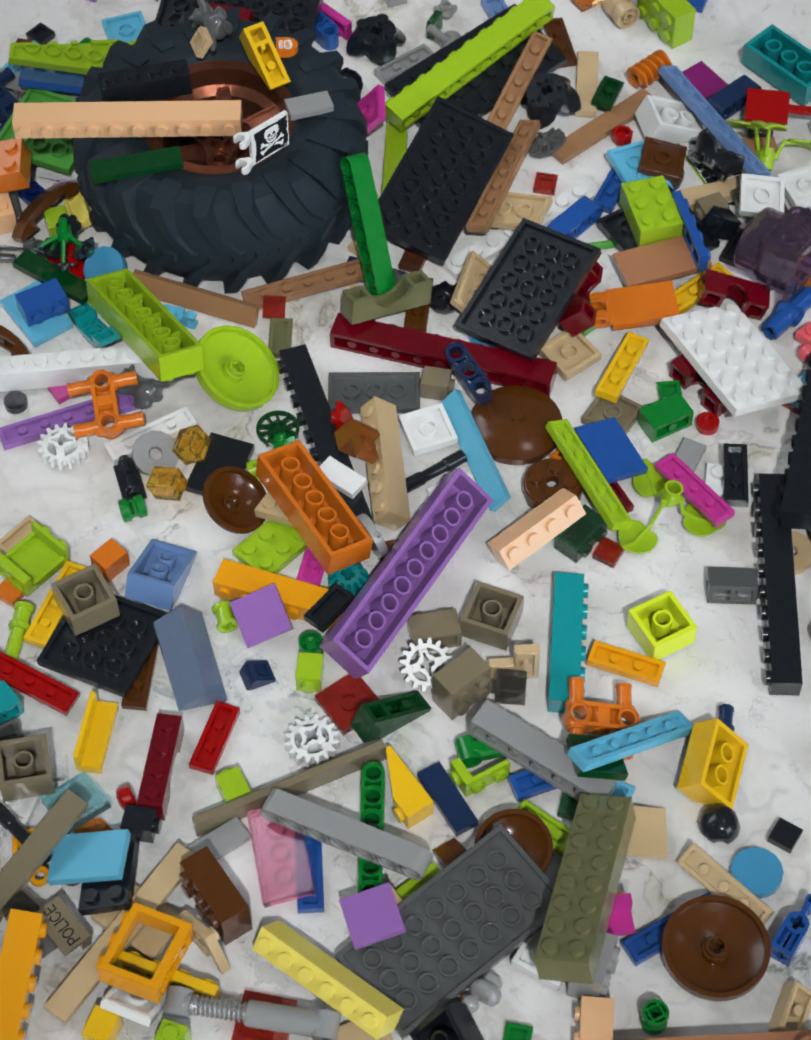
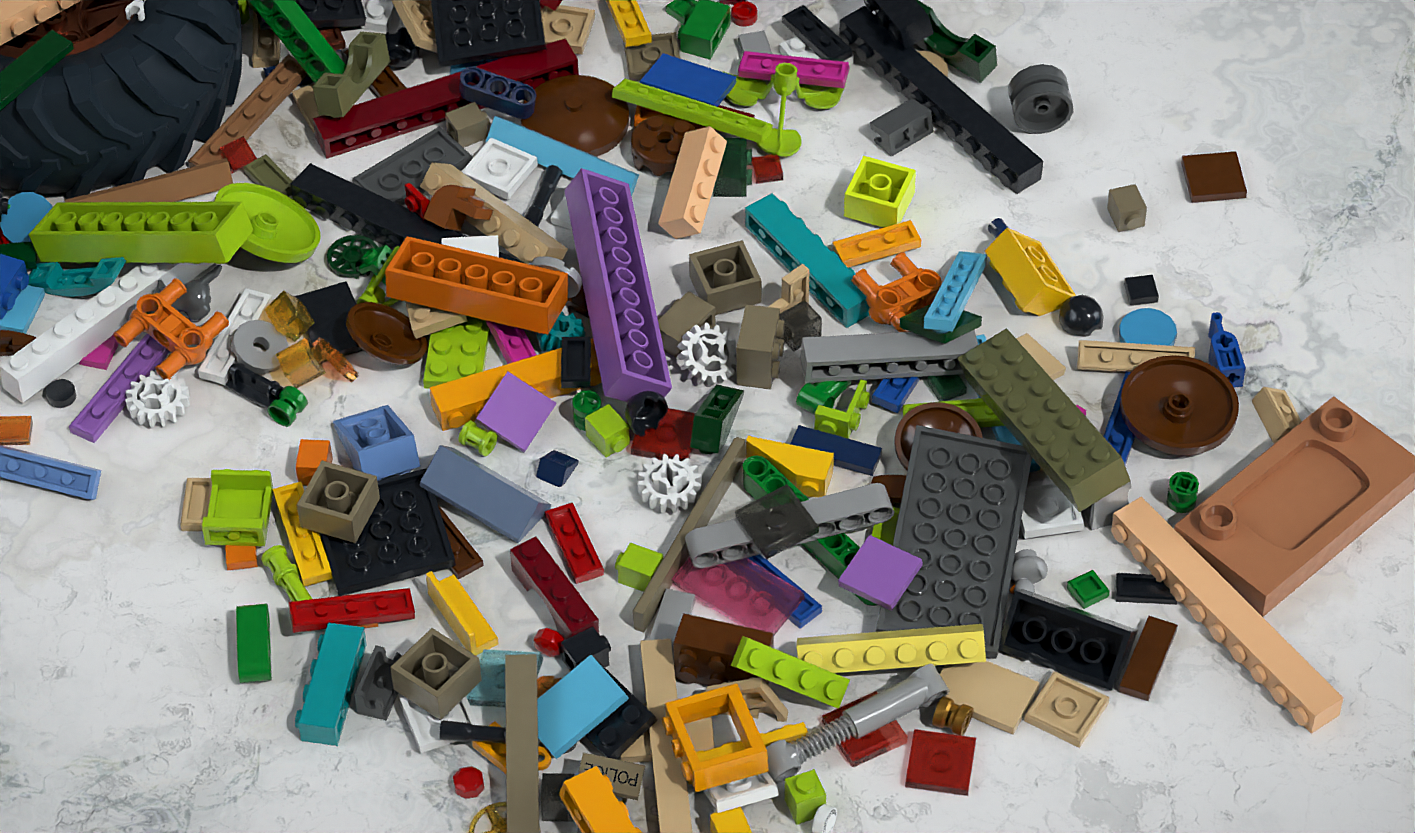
camera: 40 degrees left, 5 degrees down
(188, 496) = (336, 359): none -> clear orange tile
(235, 944) = (790, 672): none -> lime plate
(331, 825) = (777, 521): none -> clear smoke tile
(338, 676) = (645, 411): none -> black hair

